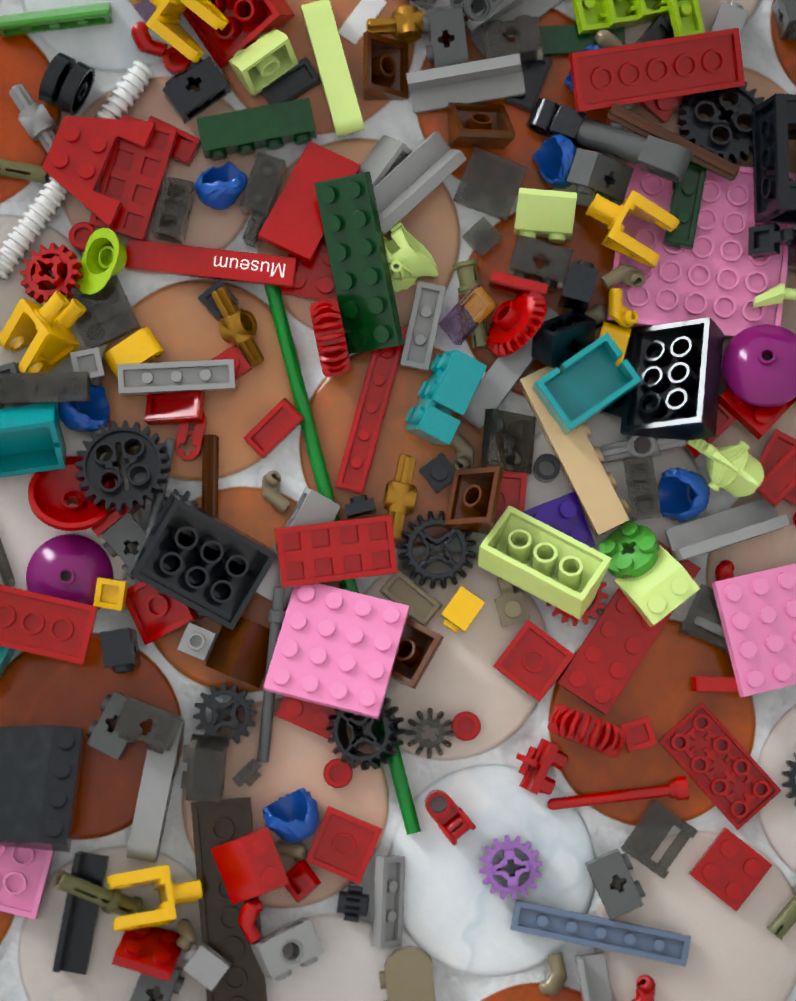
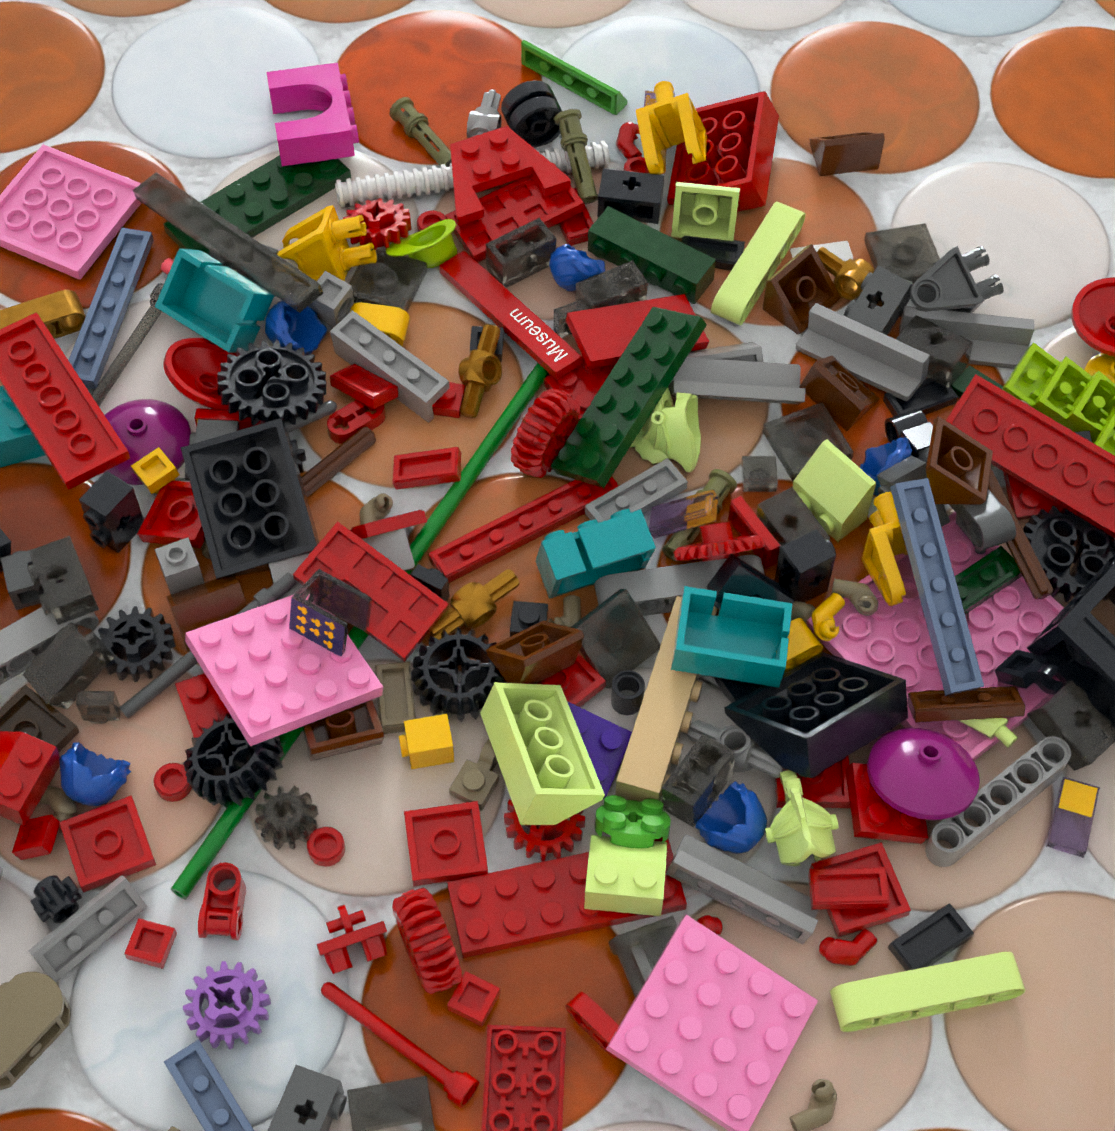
camera: 40 degrees right, 25 degrees down
(125, 88) = (574, 143): none -> olive pin
(297, 494) = (389, 524): none -> red tile
(332, 579) = (337, 599): none -> clear smoke piece
(431, 875) = (150, 943): none -> red plate
(622, 139) = (957, 466): none -> reddish brown slope
(678, 238) = (936, 586): none -> sand blue plate
(751, 295) = (972, 704): none -> reddish brown tile

